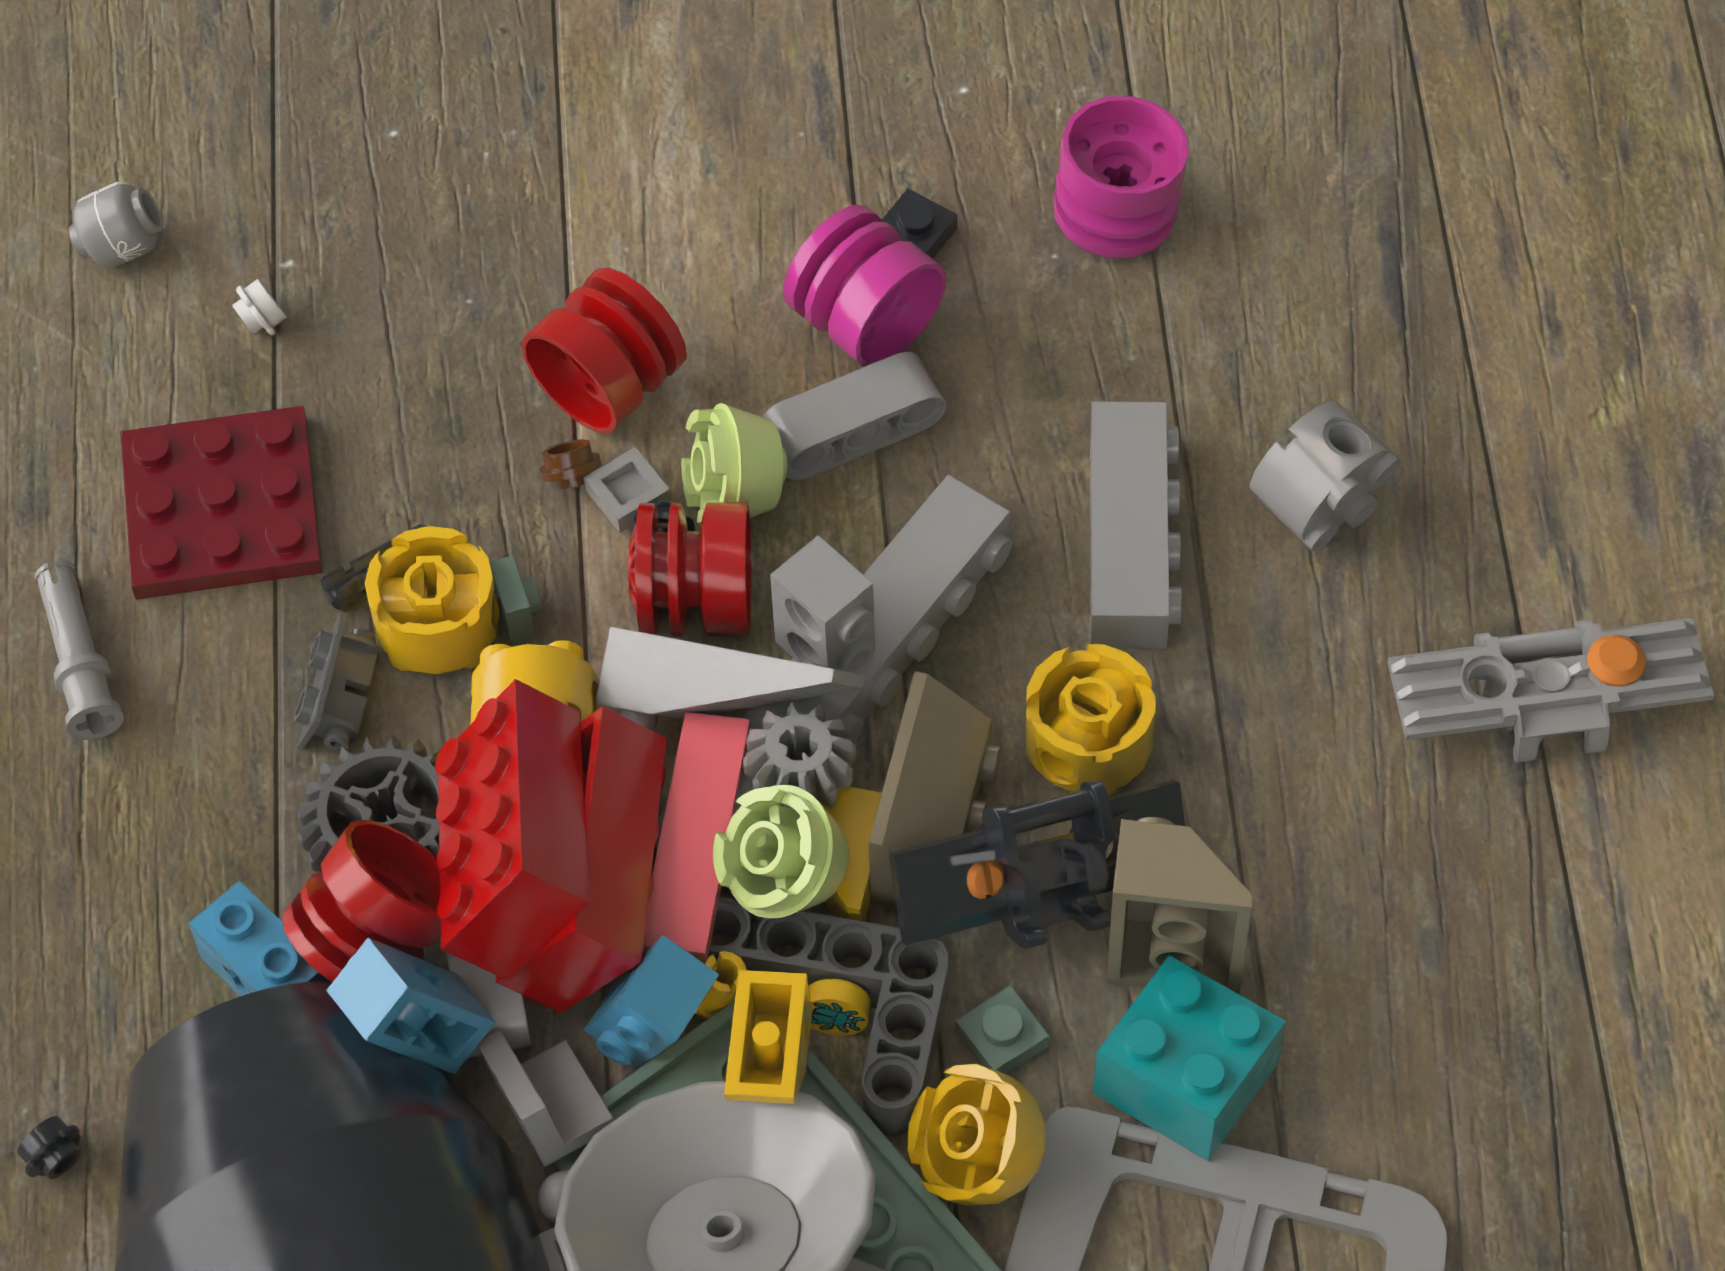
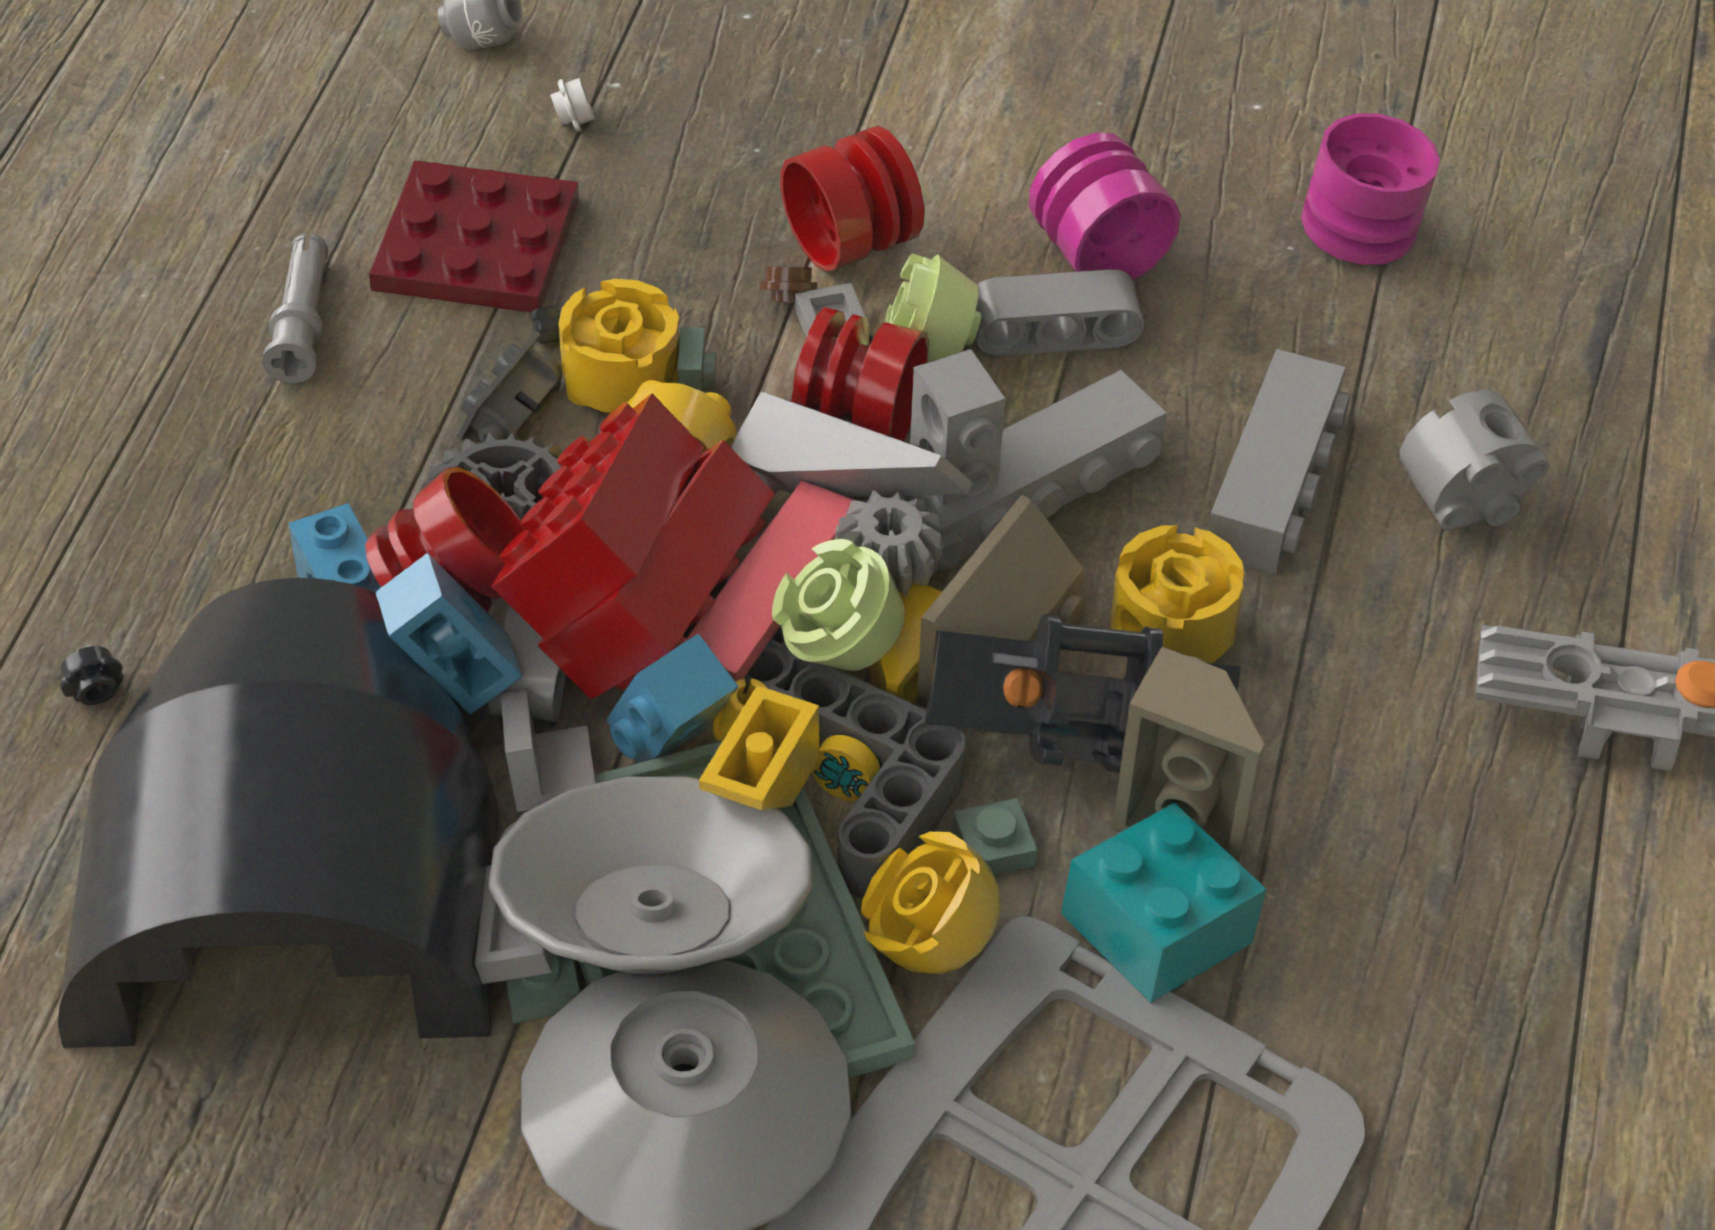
camera: 15 degrees right, 10 degrees down
(922, 222) = (1184, 187): black plate -> none

